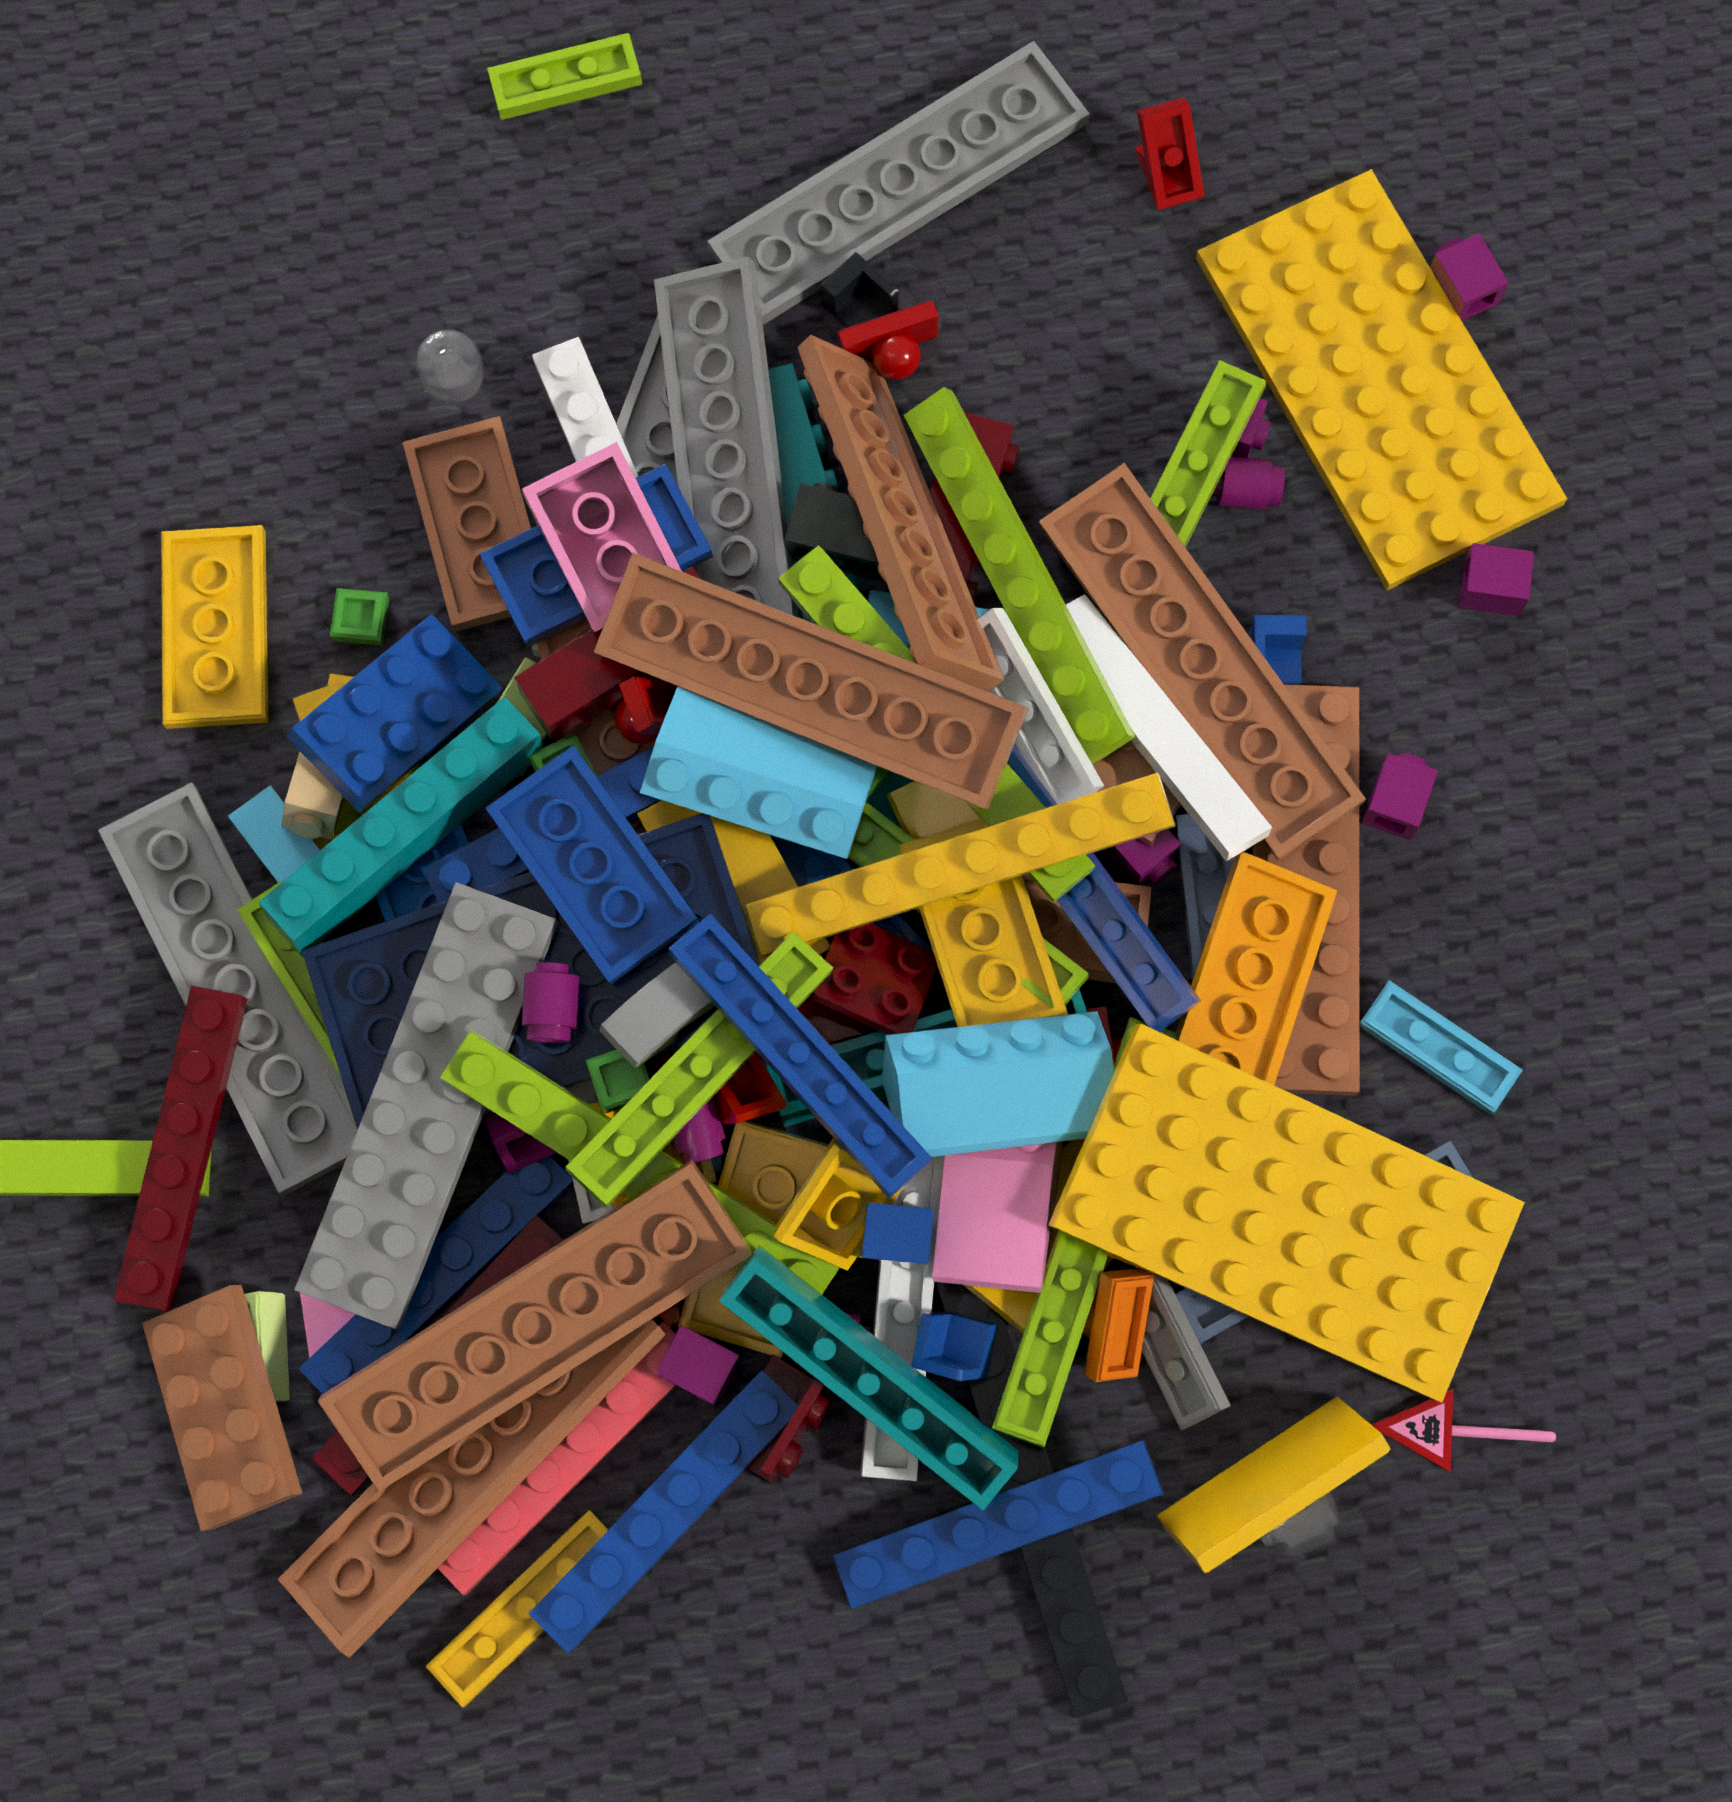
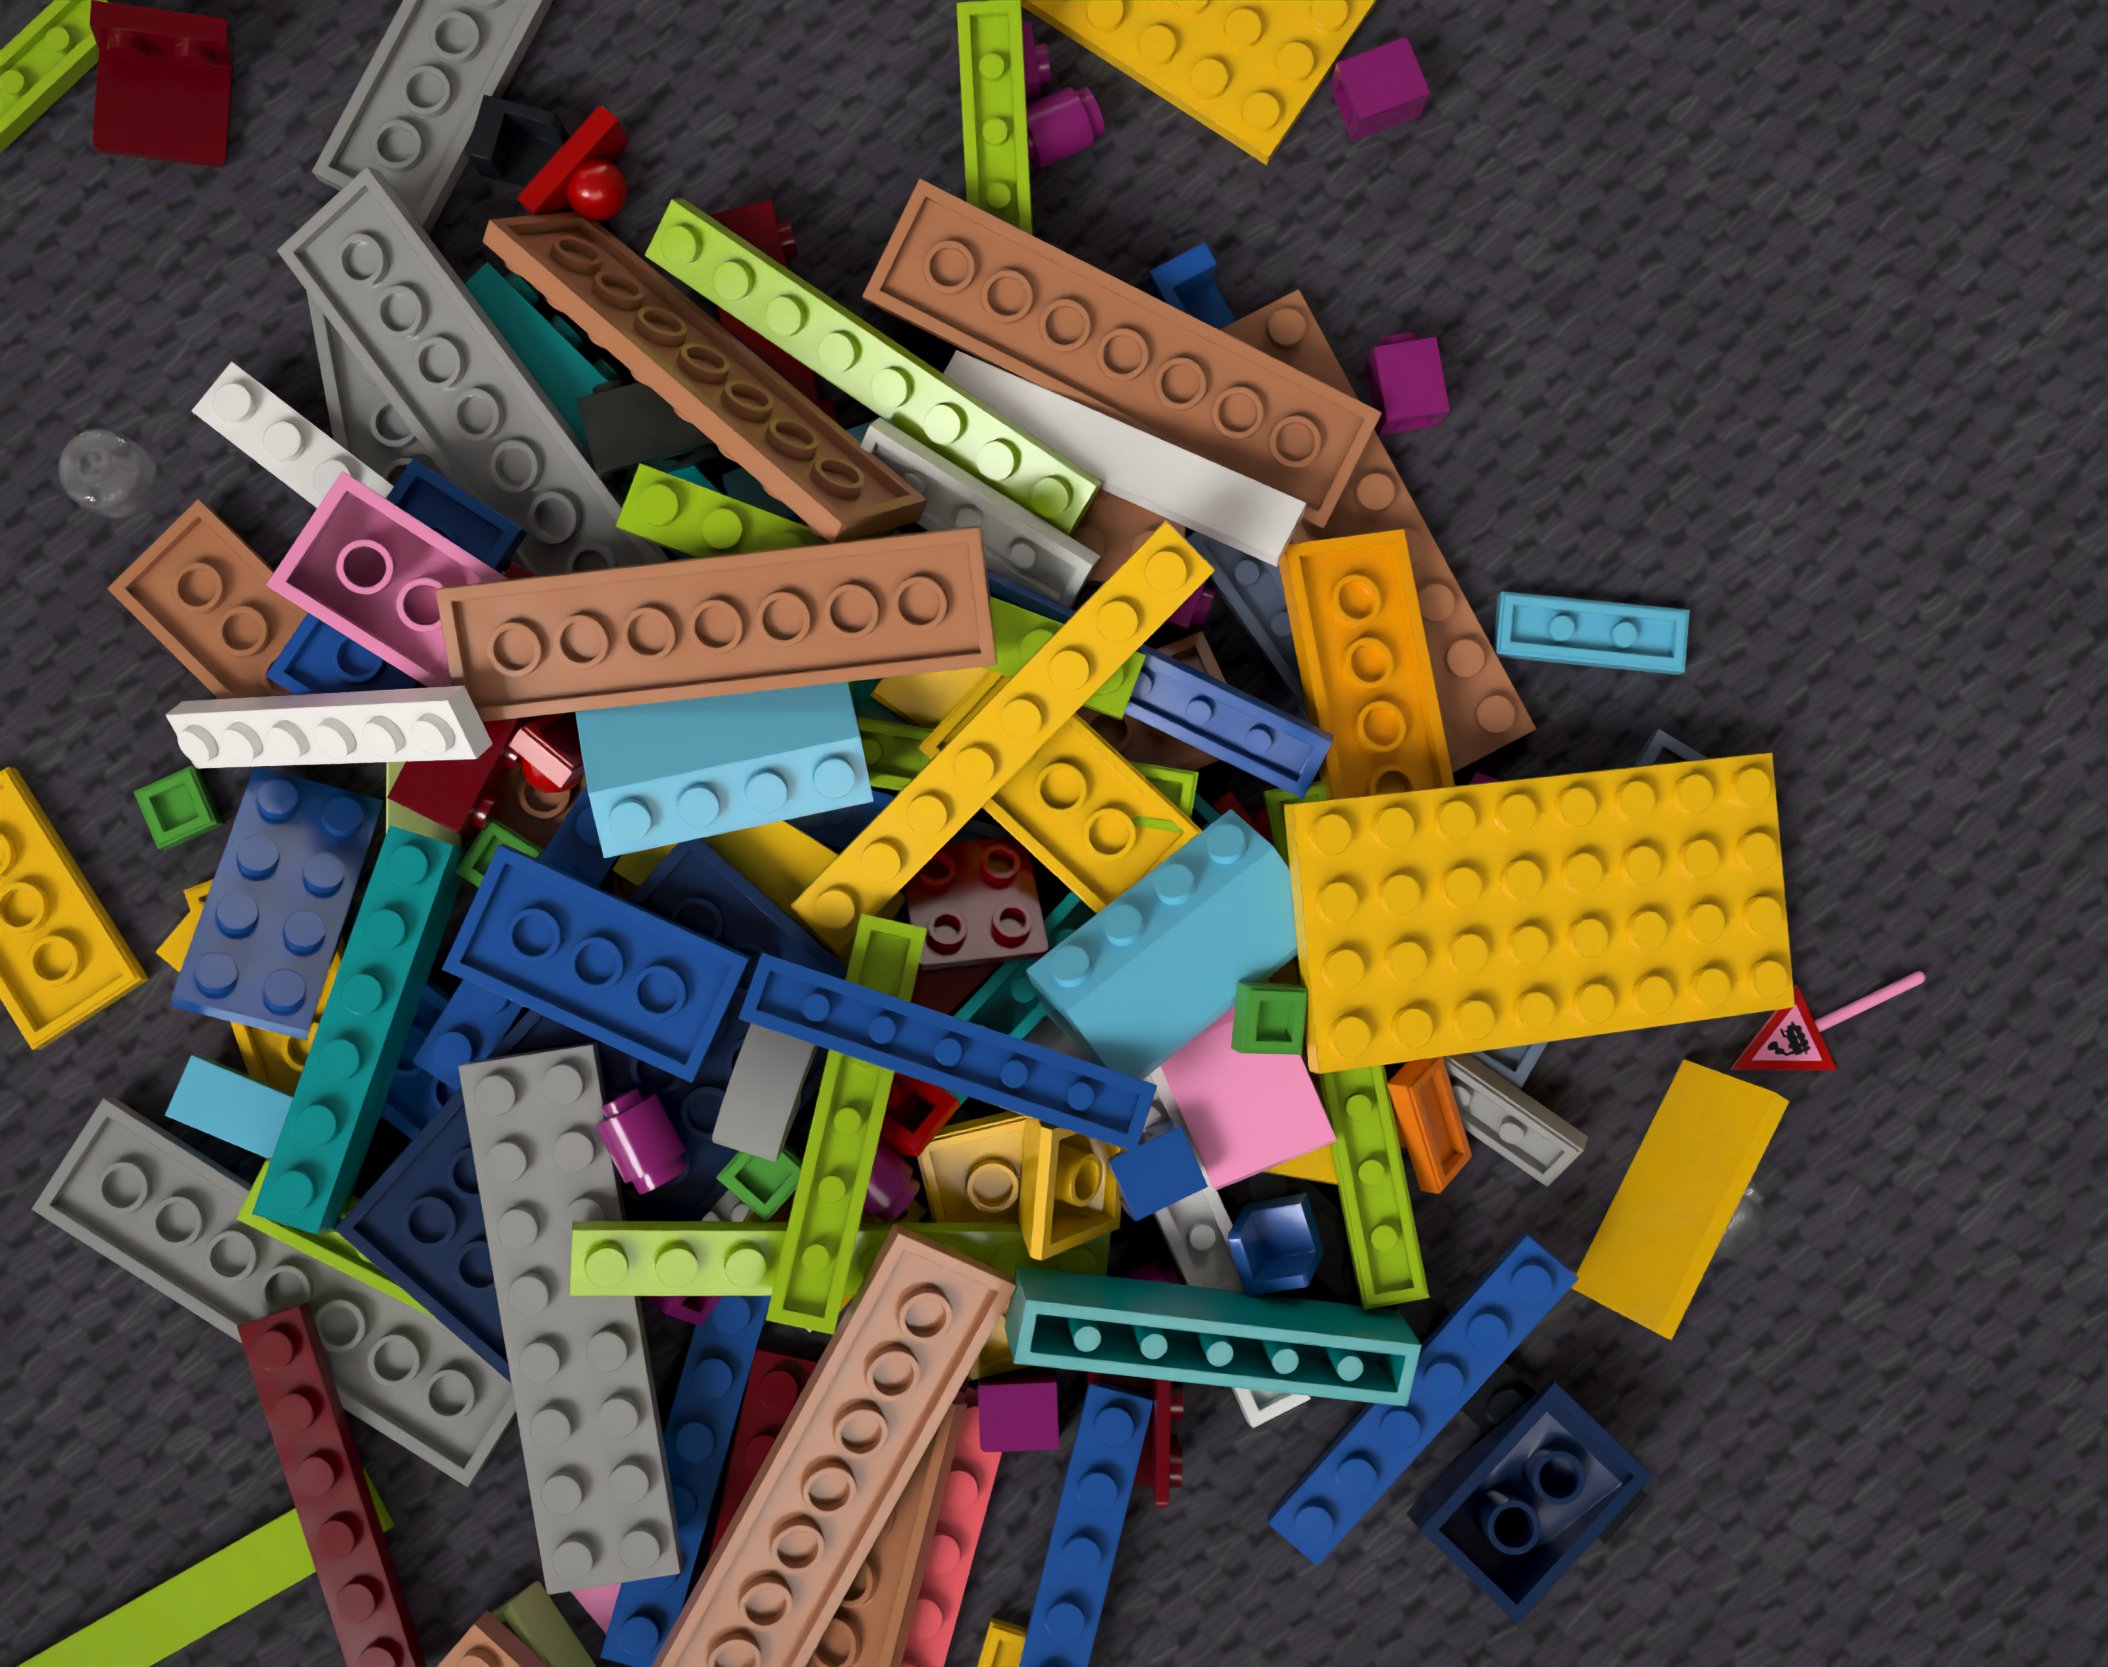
camera: 35 degrees left, 10 degrees up
(311, 803) = (247, 1057): tan brick -> none
(502, 611) = (331, 728): none -> white plate
(640, 132) = (162, 84): none -> dark red bracket
(1037, 1641) = (1529, 1499): none -> dark blue slope
(1040, 1168) = (1269, 1018): none -> bright green tile

